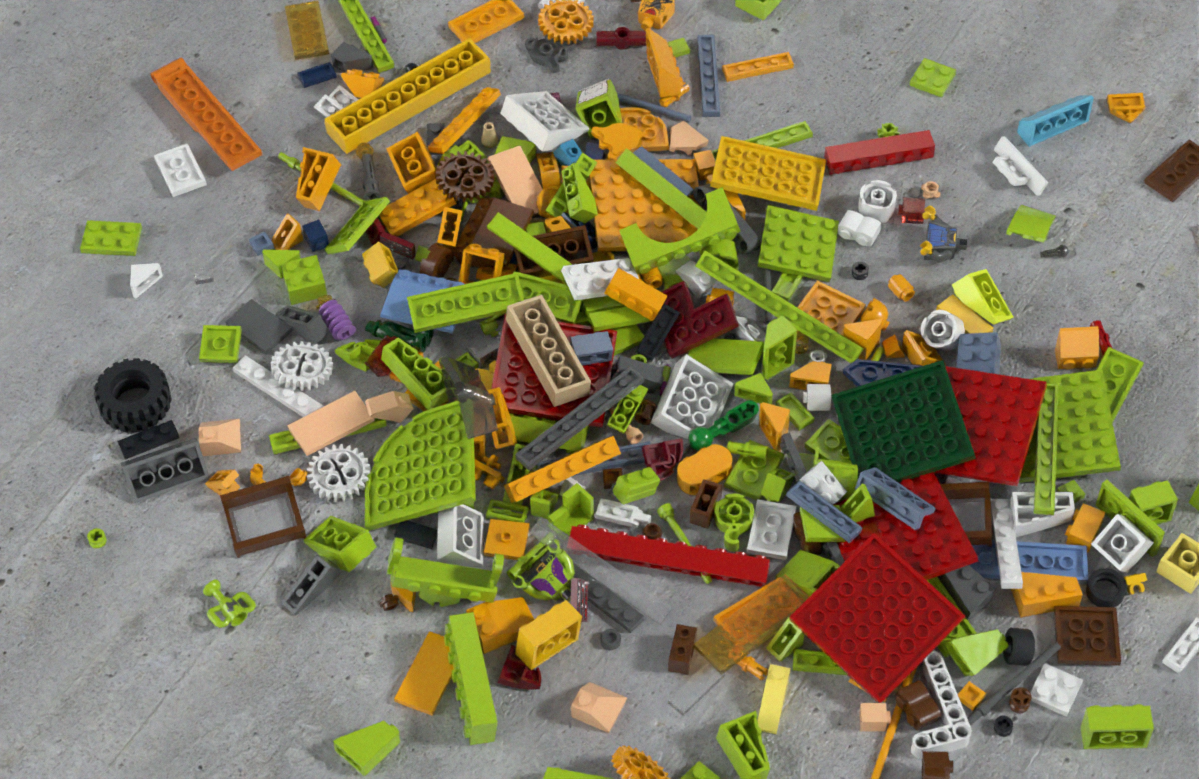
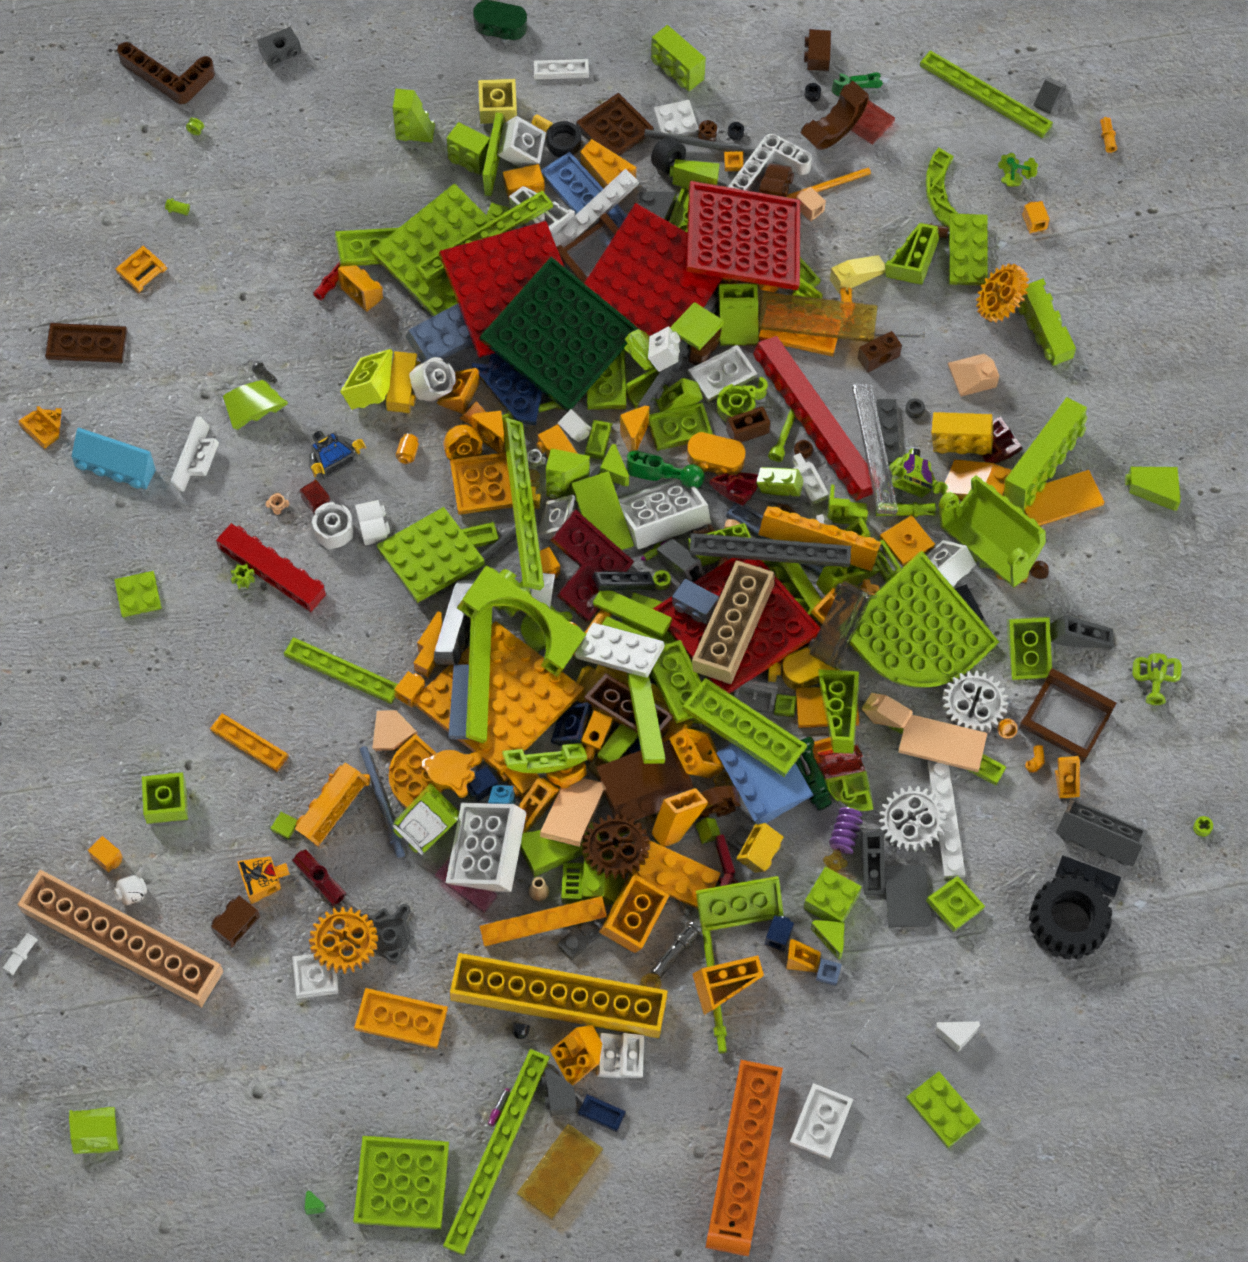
camera: 135 degrees left, 10 degrees up
(220, 437) = (1032, 823): light nougat slope -> none
(578, 195) = (550, 739): lime slope -> none
(579, 597) = (911, 443): tile -> none
(635, 294) = (616, 605): light orange brick -> none
(708, 76) = (296, 775): sand blue tile -> none
(747, 449) = (672, 435): lime pin -> none
(768, 173) = (380, 625): yellow plate -> none
(824, 511) = (689, 328): sand blue tile -> none
(859, 505) = (662, 311): lime slope -> none
(862, 266) = (414, 488): black bush -> none
(896, 498) = (637, 304): sand blue fence -> none

